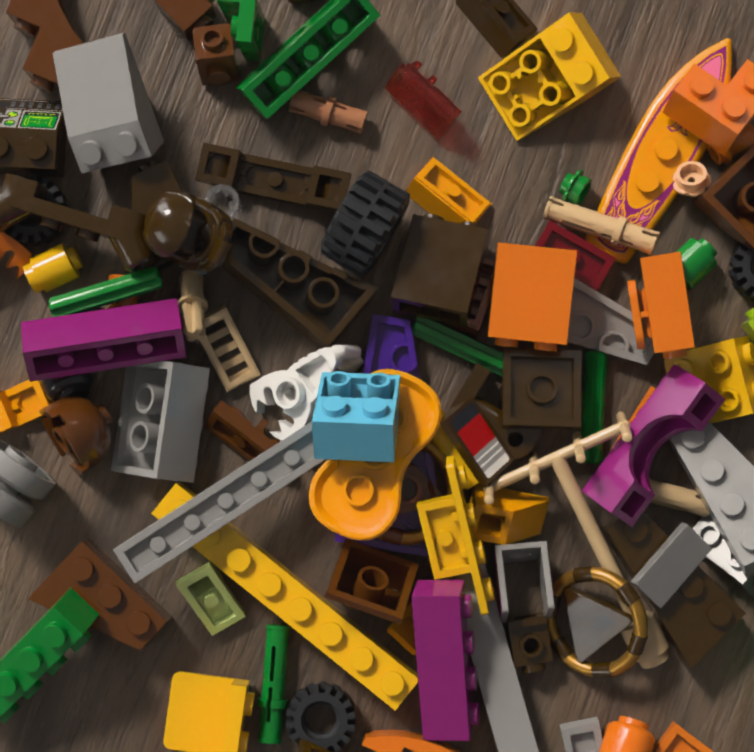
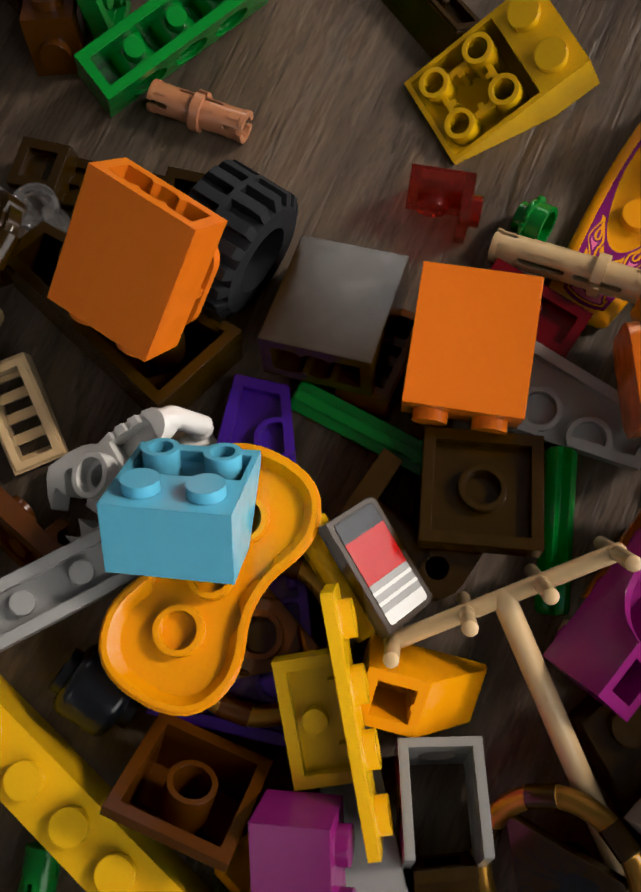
camera: 10 degrees right, 10 degrees down
(299, 529) = (89, 696): none -> black head
(313, 259) = (136, 258): none -> orange brick
(423, 99) = (328, 98): clear red plate -> none
(446, 194) = (347, 217): light orange slope -> none
(506, 171) = (445, 192): none -> clear red bracket

